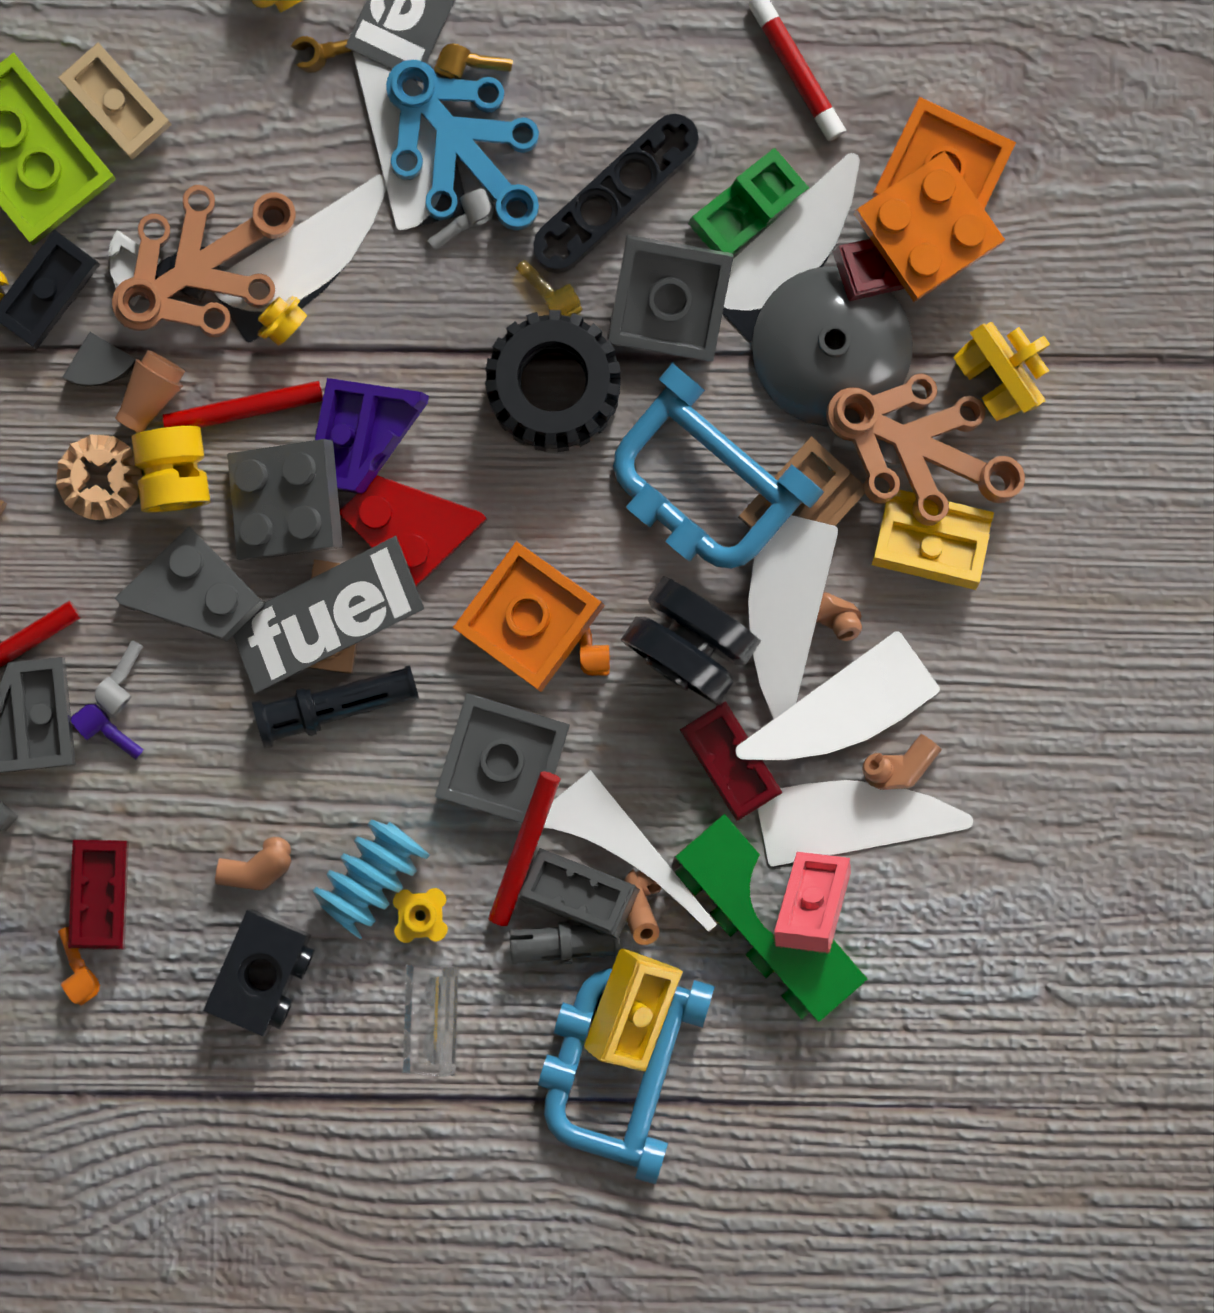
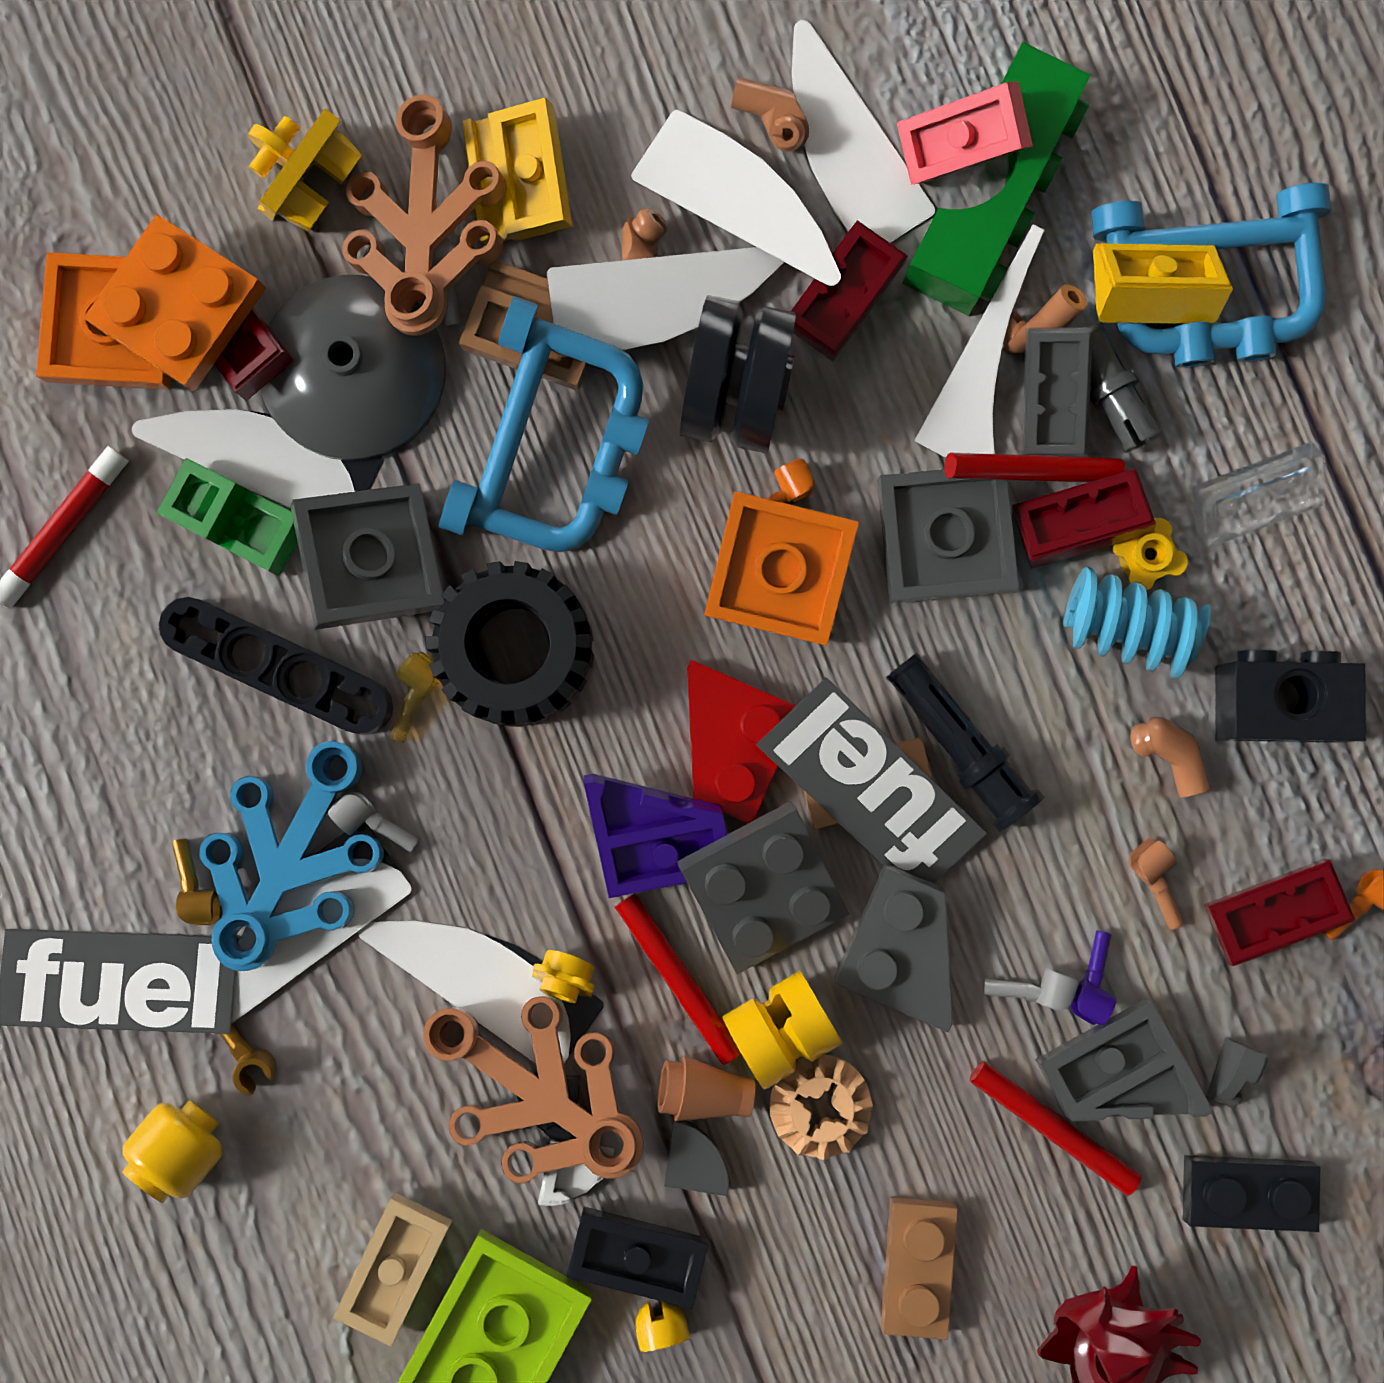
camera: 115 degrees left, 0 degrees up
(178, 813) = (1150, 863): none -> nougat hand
(470, 872) = (1084, 518): none -> dark red plate

